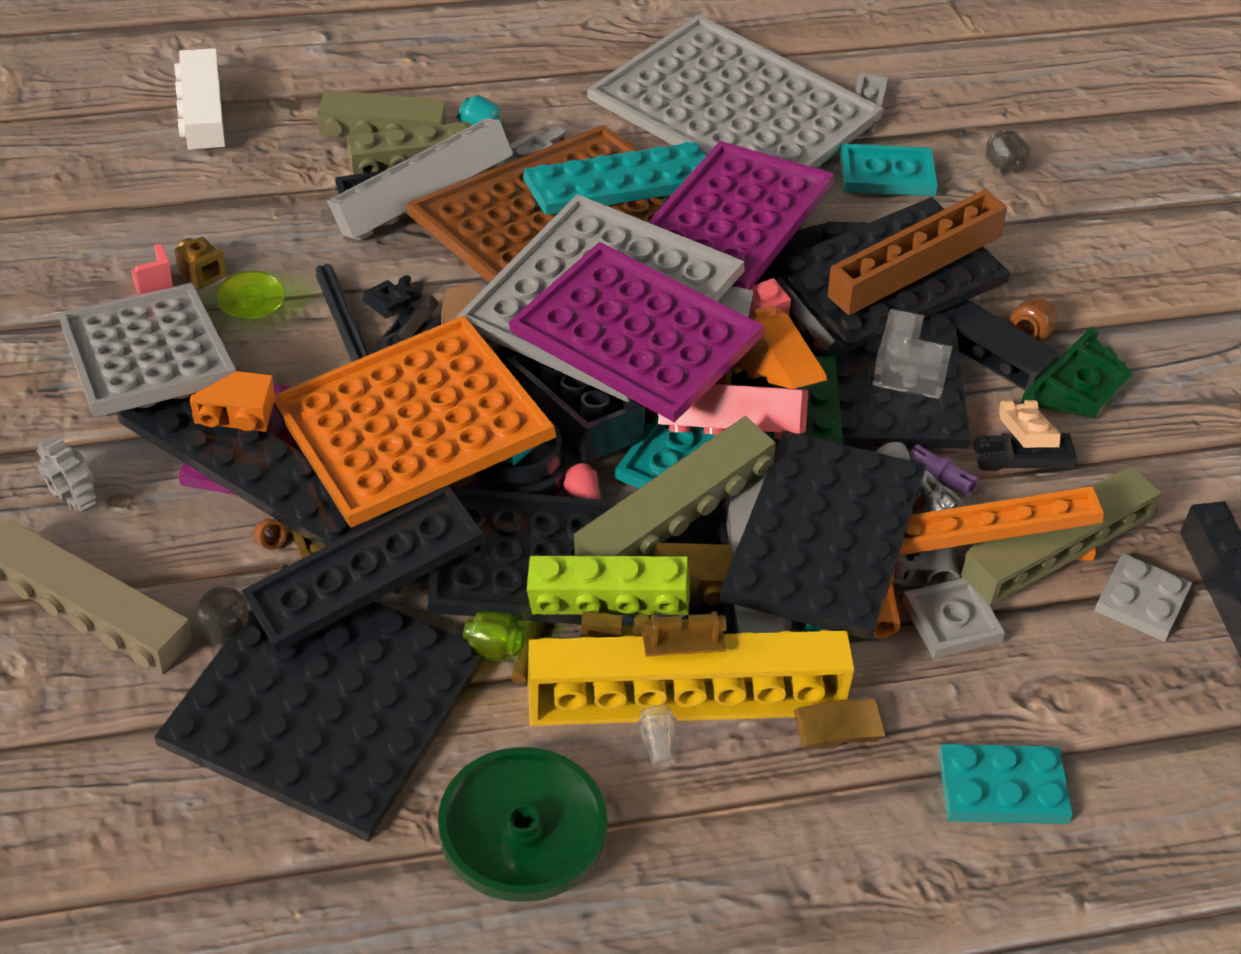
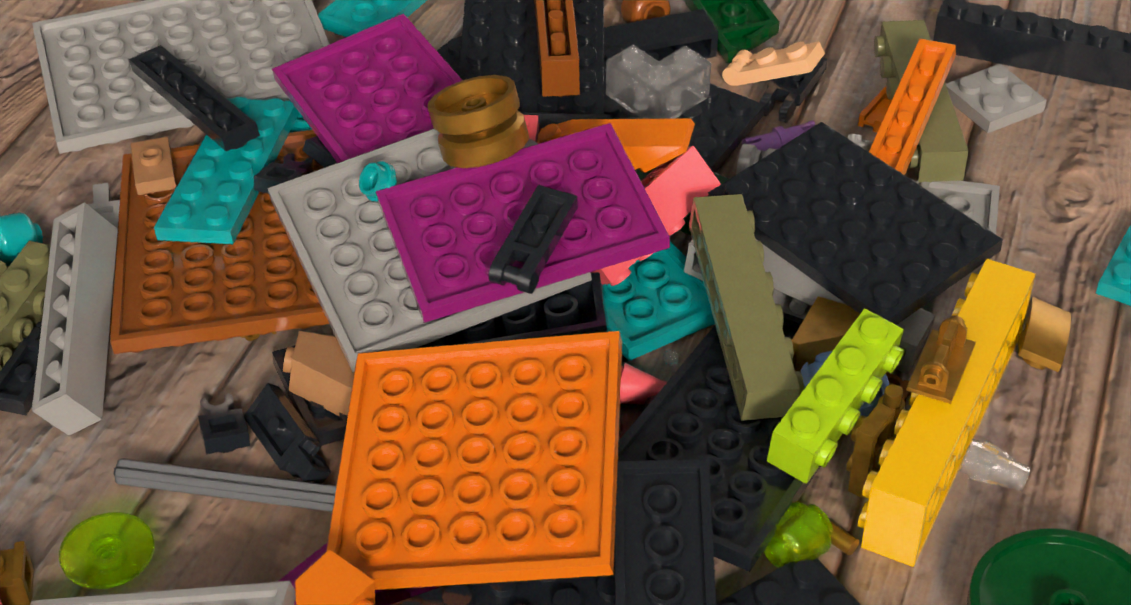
camera: 55 degrees left, 5 degrees down
(595, 141) = (153, 166): none -> medium nougat plate
(604, 338) = (533, 238): none -> black plate
(615, 237) = (377, 177): none -> teal plate
(629, 204) = (279, 173): none -> black plate
(666, 122) = (195, 98): none -> black plate
(694, 252) = (478, 121): none -> pearl gold wheel

